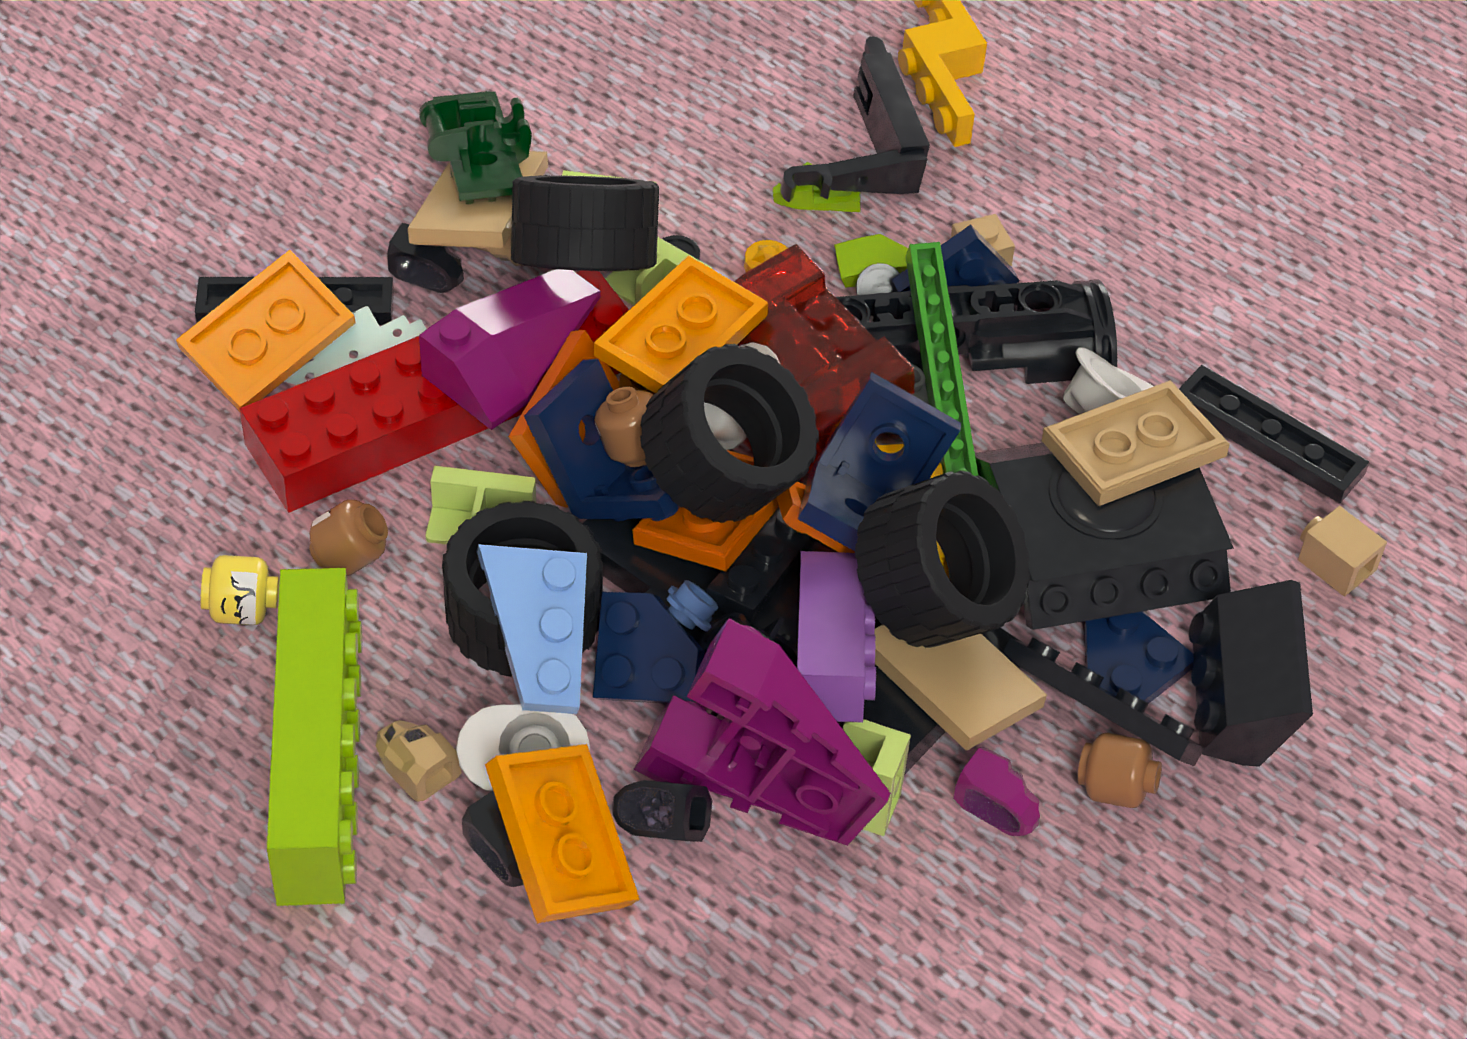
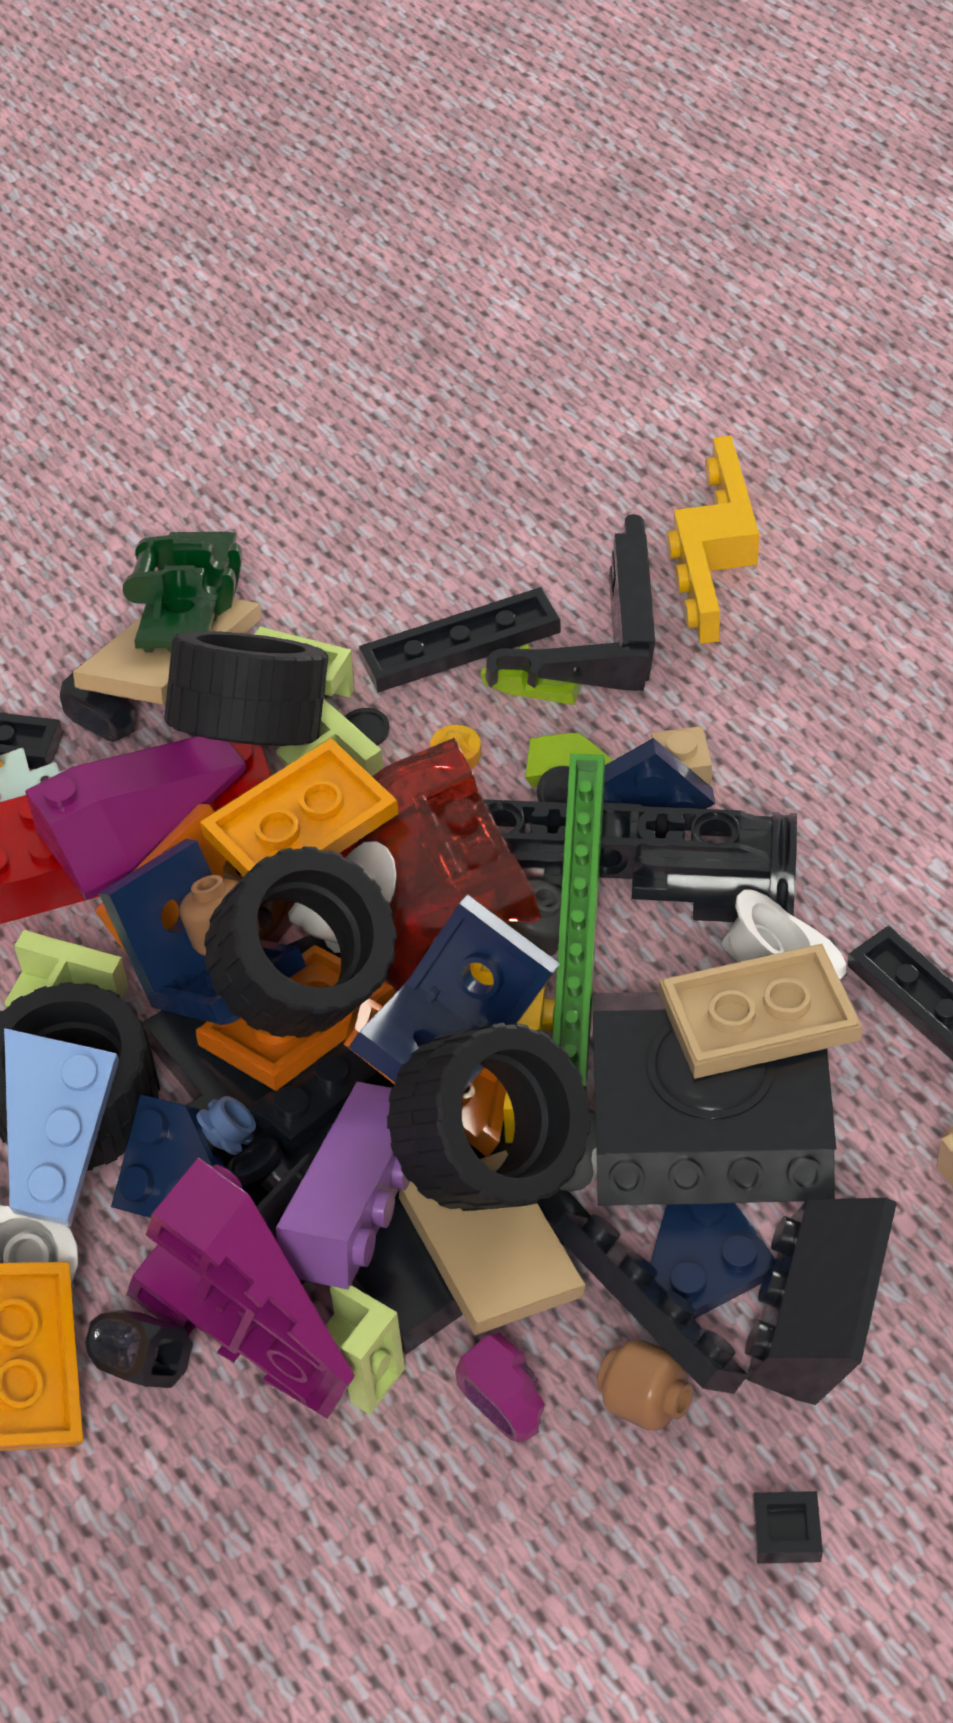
camera: 20 degrees right, 0 degrees up
(741, 165) = (459, 639): none -> black plate
(1272, 865) = (787, 1527): none -> black plate

